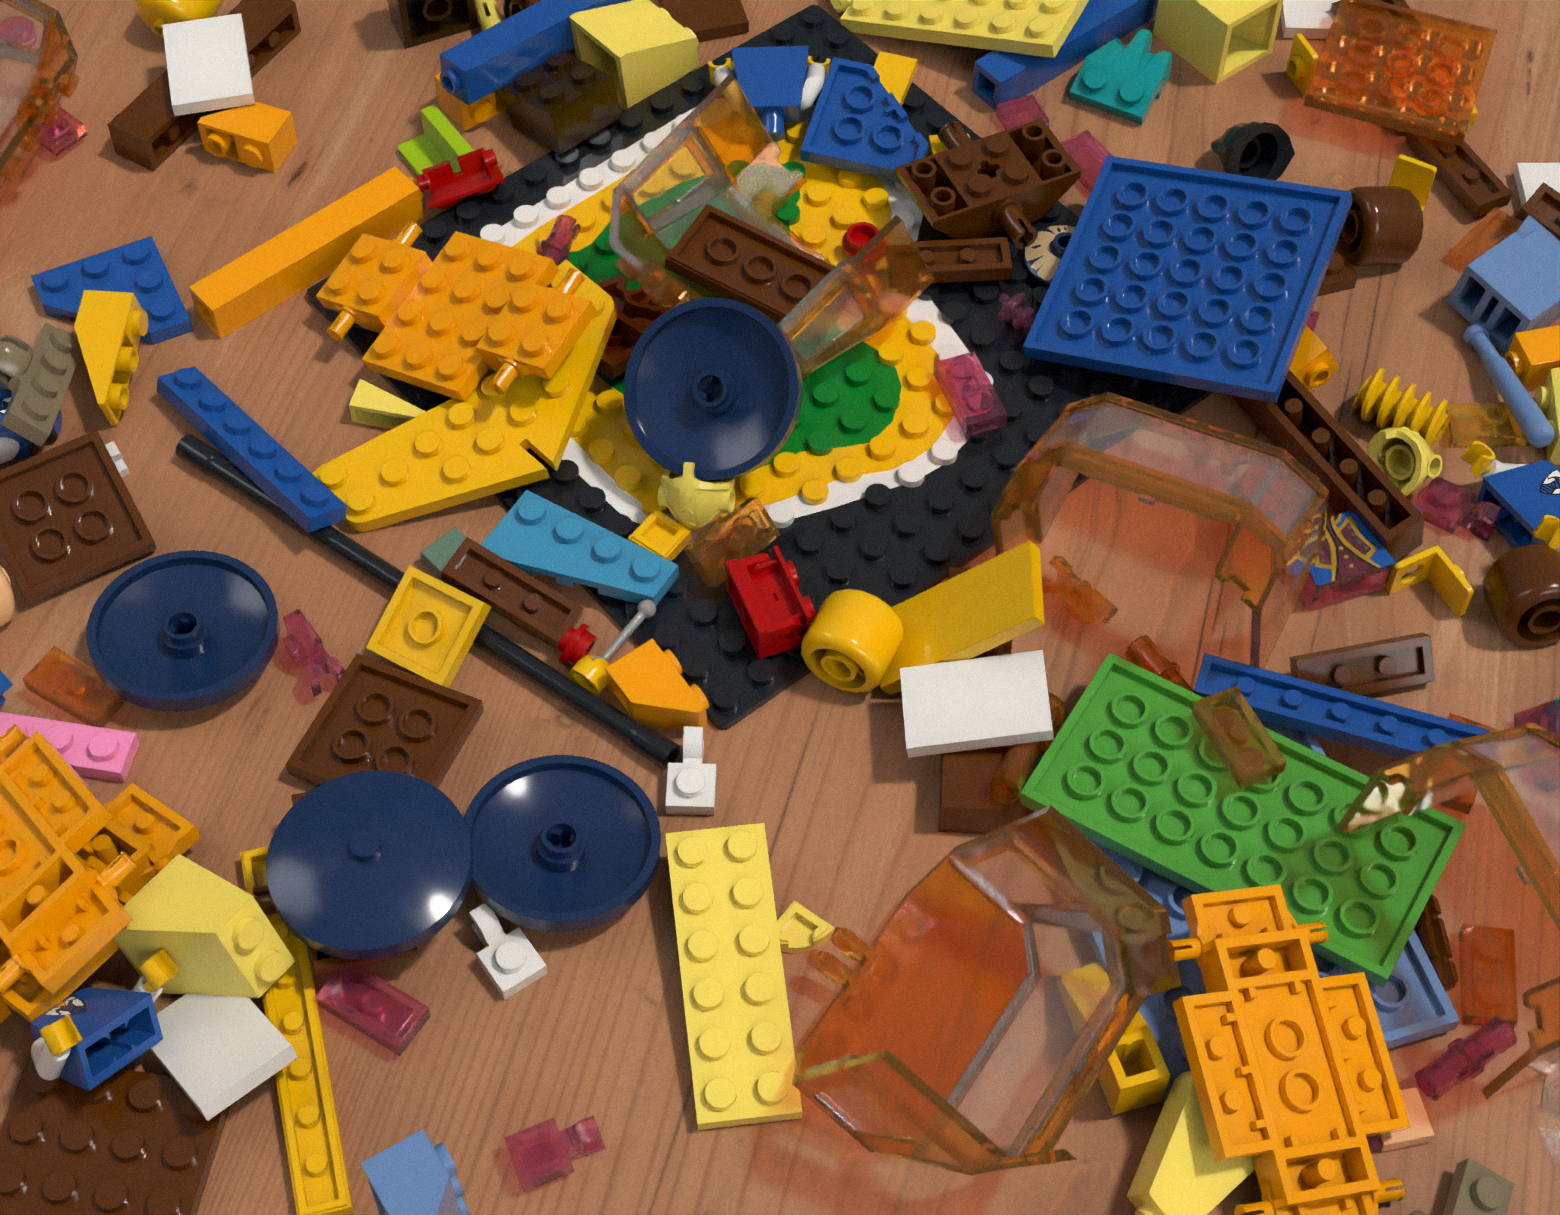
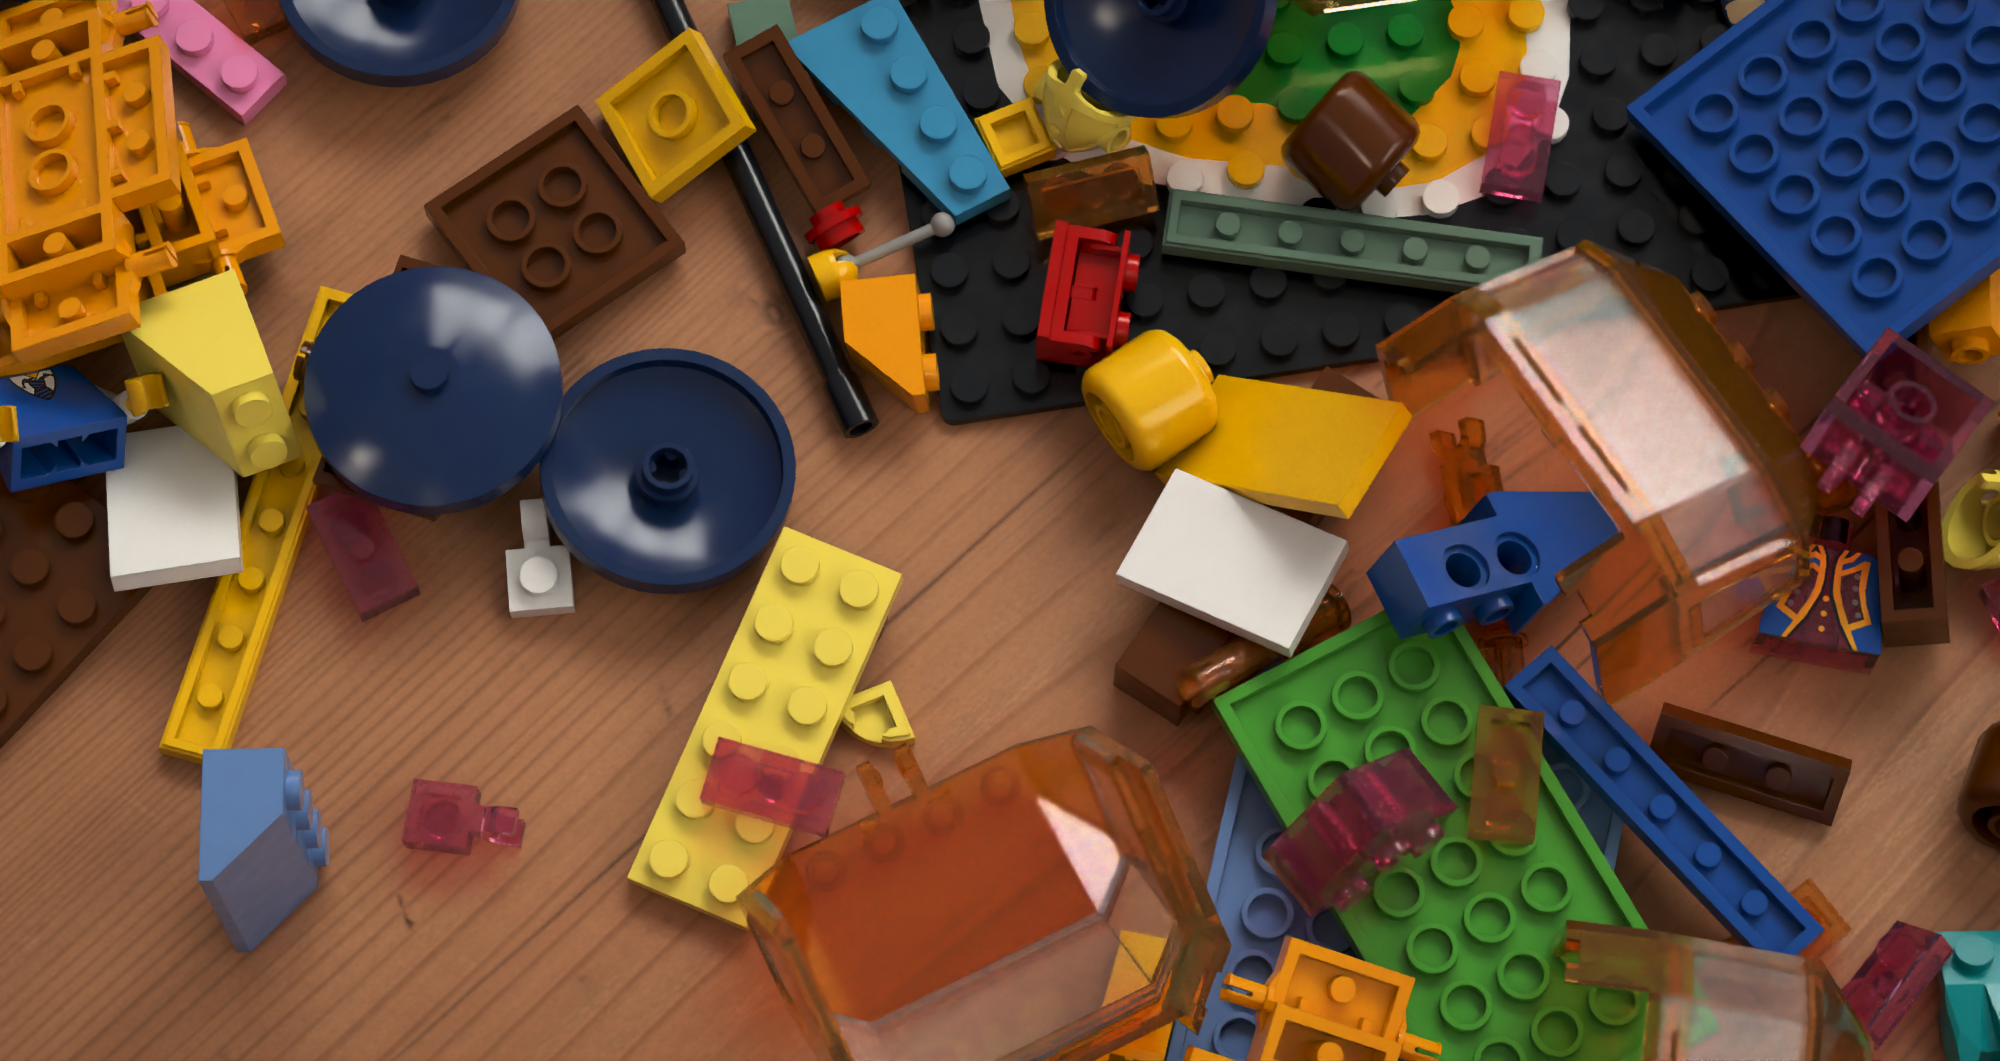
camera: 30 degrees right, 15 degrees up
(307, 646) = (526, 61): clear pink plate -> none
(691, 783) = (866, 474): white plate -> none
(766, 1002) = (772, 787): none -> clear pink plate
(877, 435) = (1352, 142): none -> reddish brown head
(902, 501) = (1340, 242): none -> sand green tile
(1014, 308) = (1655, 44): clear pink hair -> none
(1136, 620) = (1490, 563): none -> blue brick
(1177, 813) = (1358, 826): none -> clear pink brick
(1326, 415) = (1895, 426): none -> clear pink hinge
(1440, 572) = (1932, 674): yellow bracket -> none

